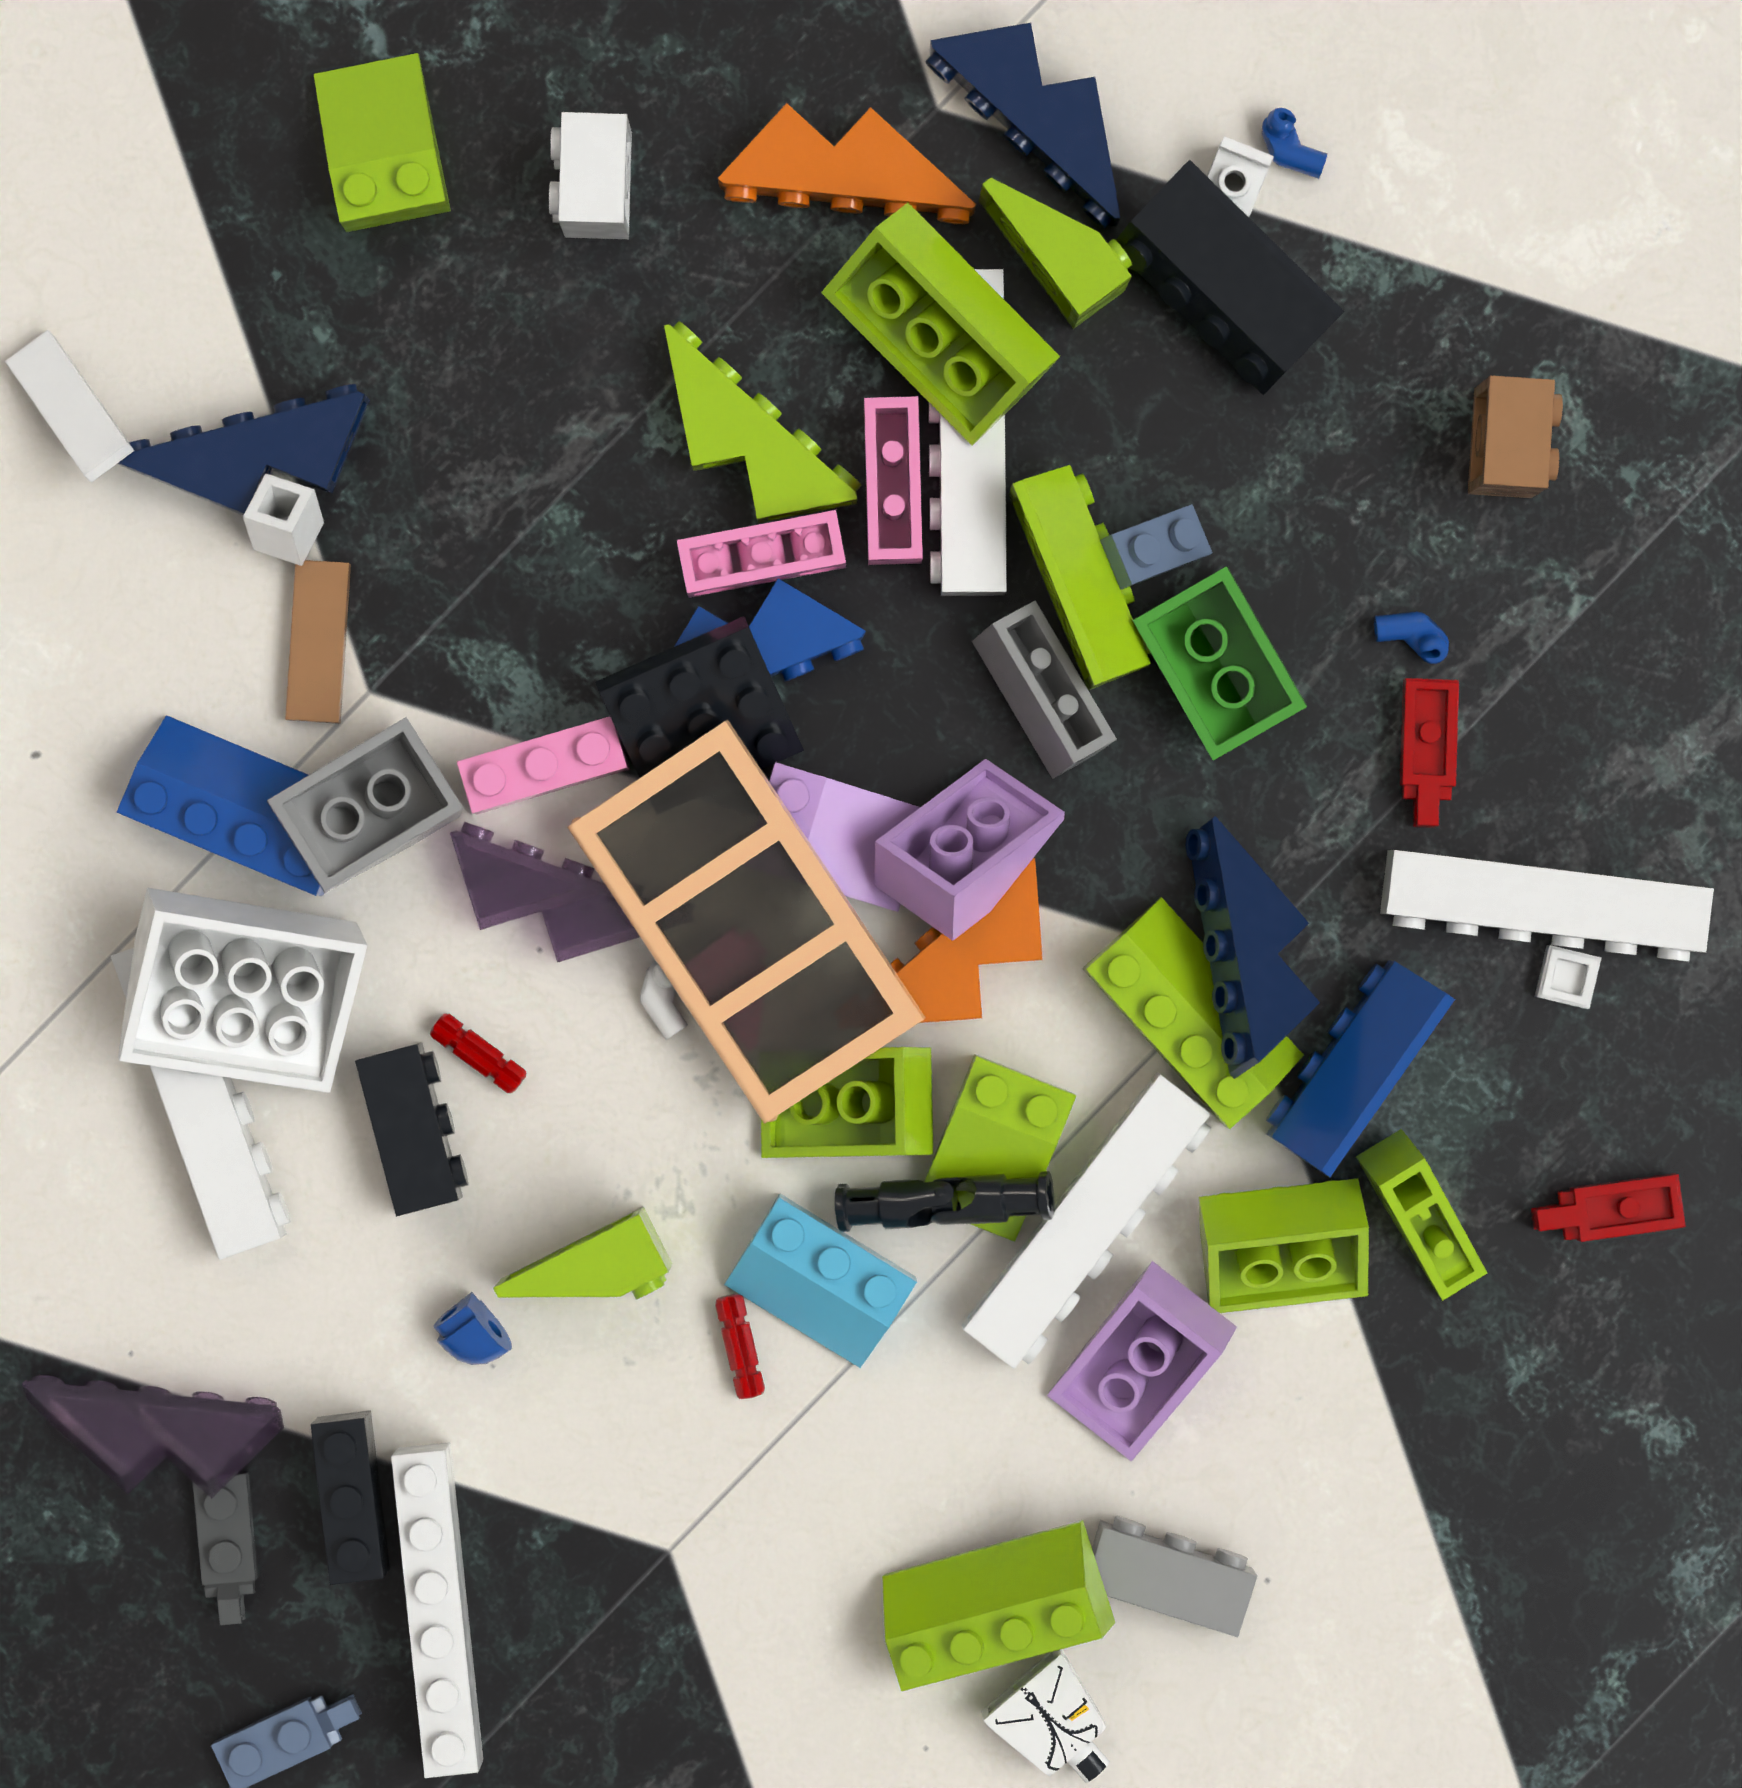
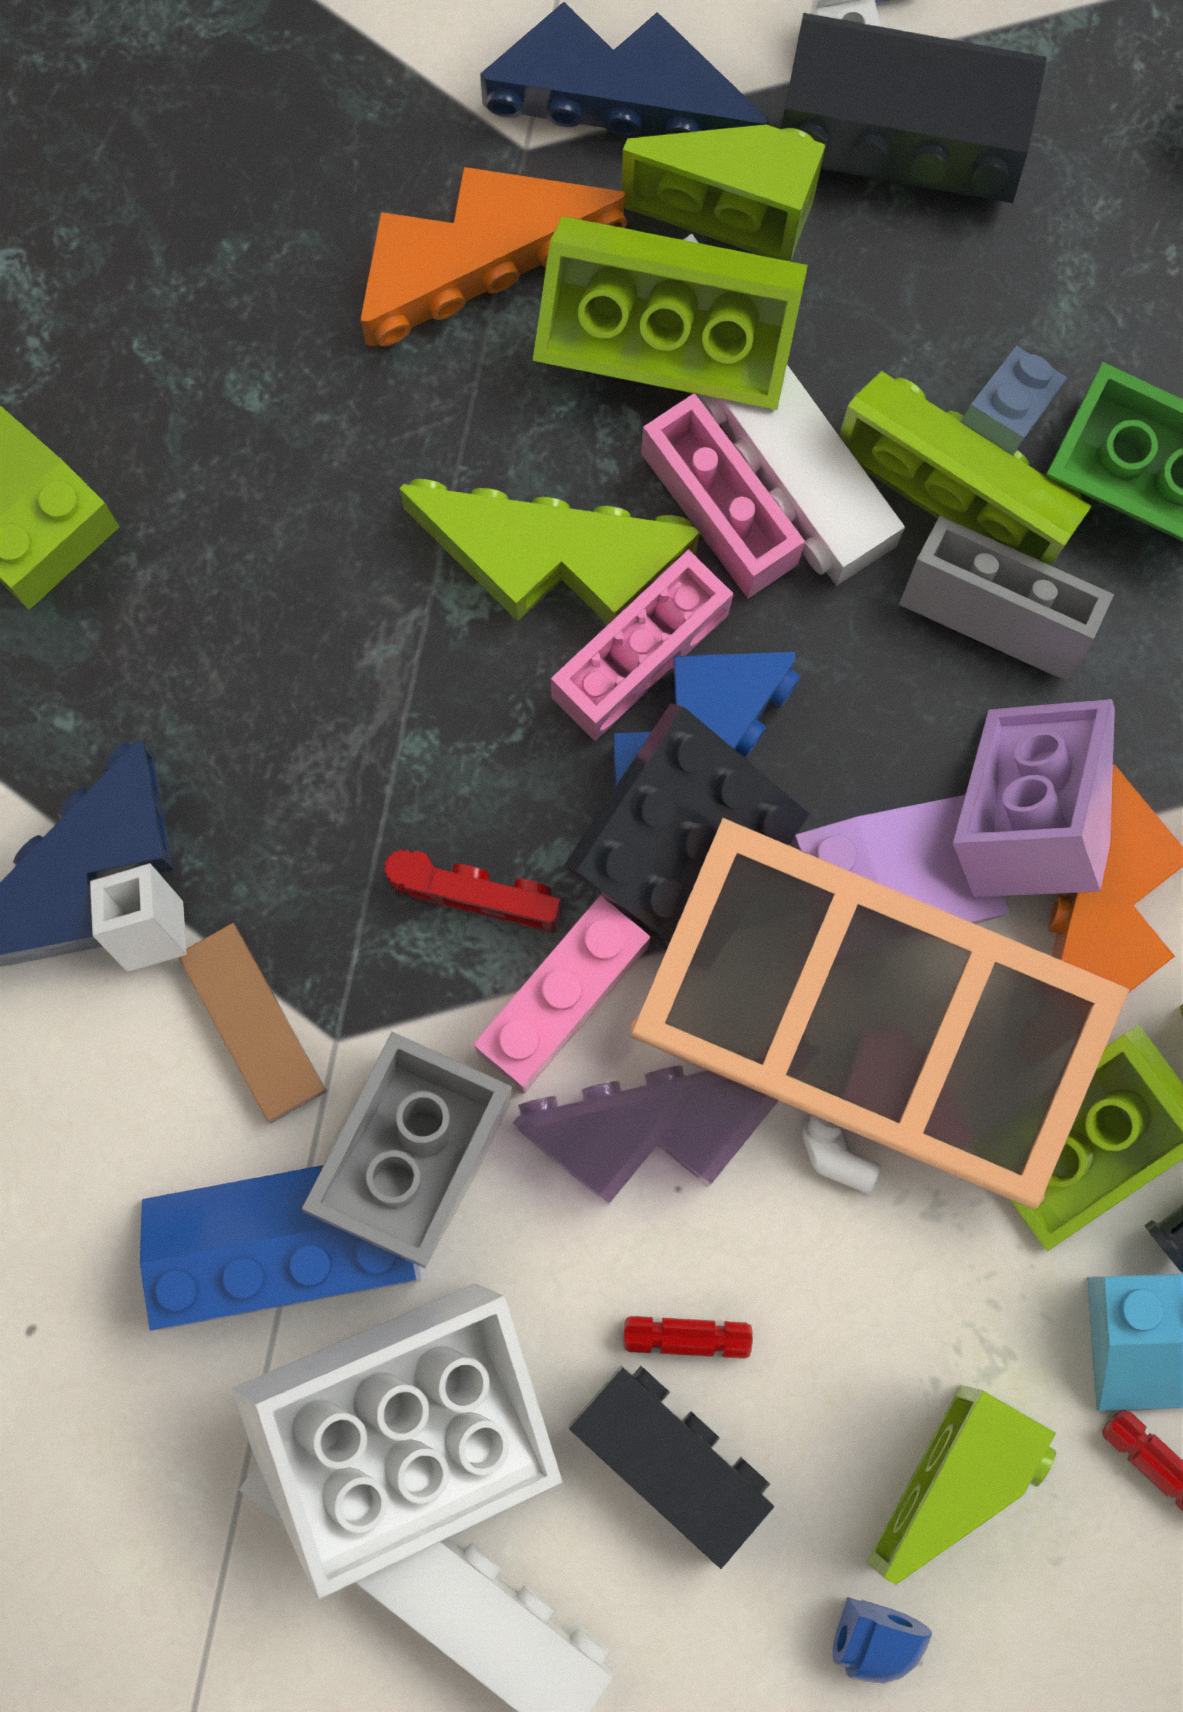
camera: 35 degrees left, 10 degrees down
(529, 649) = (470, 891): none -> red hinge
(594, 175) = (236, 391): white brick -> none

